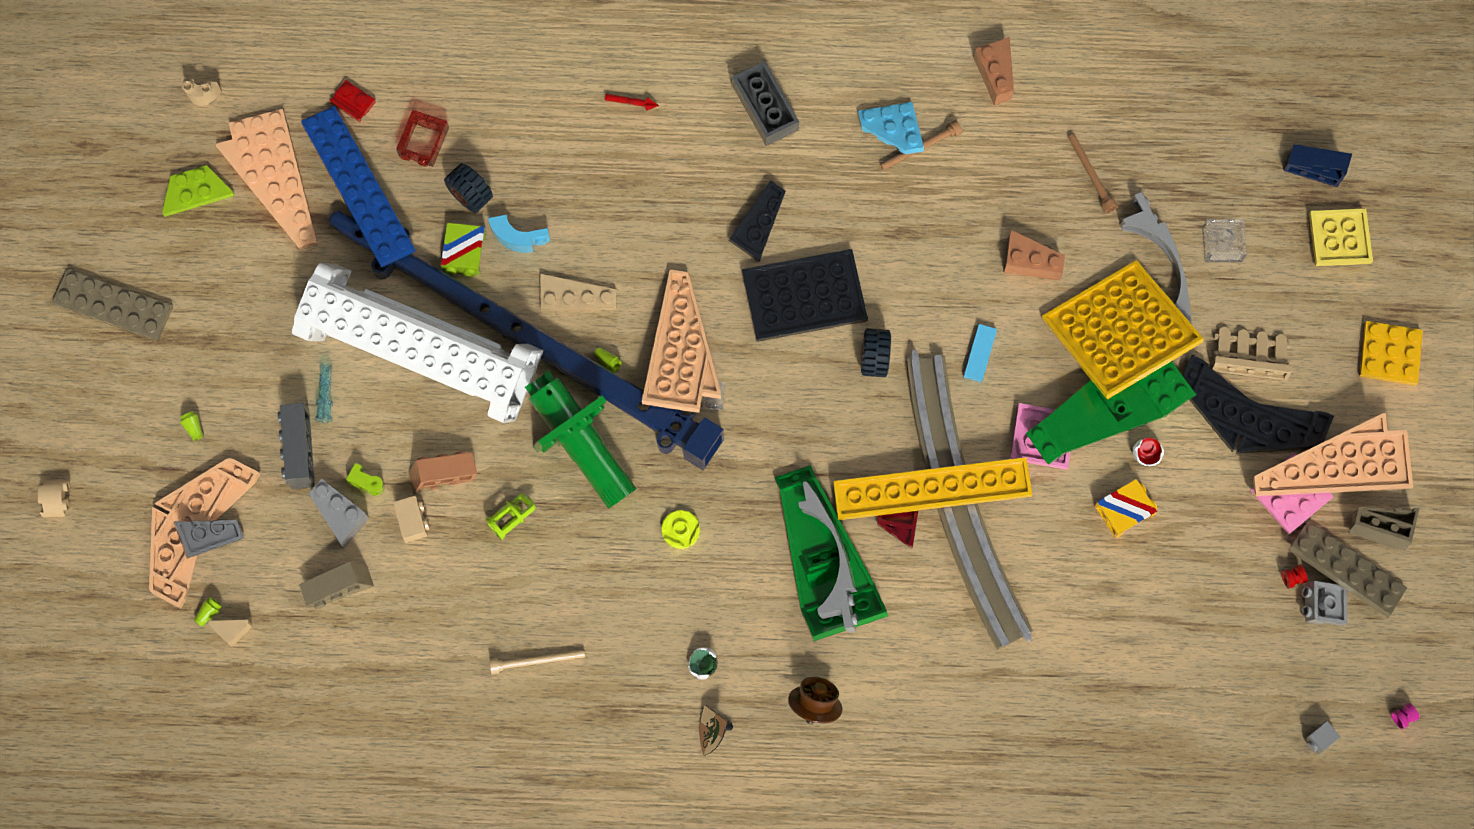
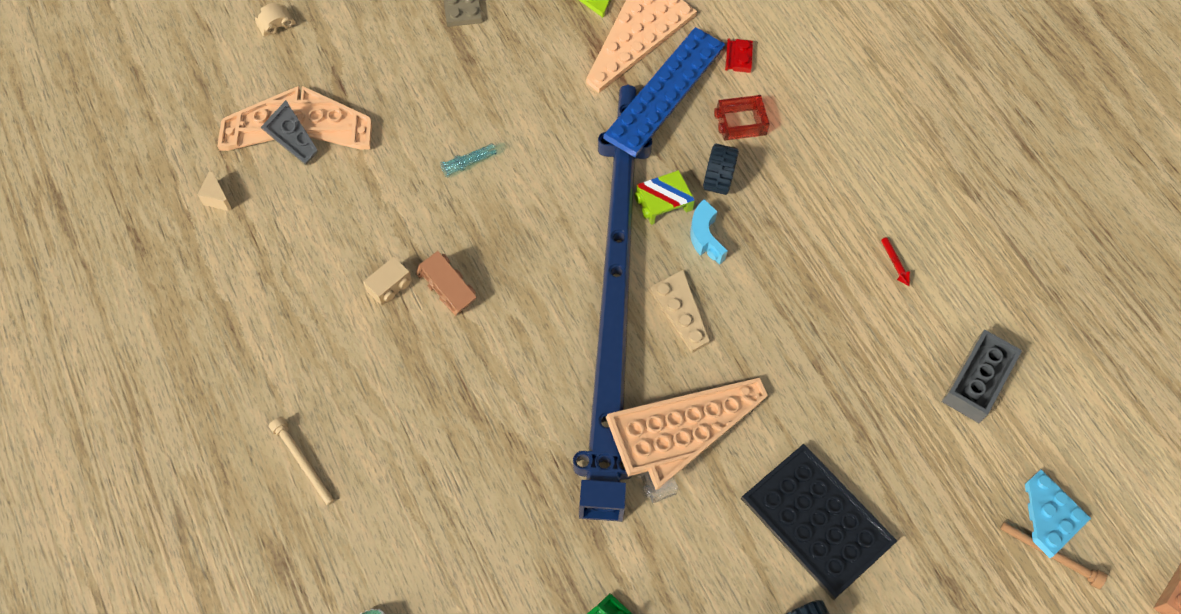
camera: 60 degrees right, 10 degrees down
(192, 425) = (385, 80): lime cone -> none
(207, 611) = (225, 169): lime cone -> none
(297, 446) = (405, 158): dark grey brick -> none
(336, 584) = (295, 252): dark tan wedge -> none
(340, 513) = (362, 221): light grey wedge -> none
(365, 482) = (403, 228): lime leg -> none
(415, 341) = (548, 198): white brick -> none
(515, 511) = (439, 363): lime piece -> none
(578, 437) = (541, 369): green piece -> none
(608, 359) = (636, 371): lime cone -> none
(680, 529) = (505, 528): neon yellow tile -> none
(757, 224) = (855, 435): black wing -> none

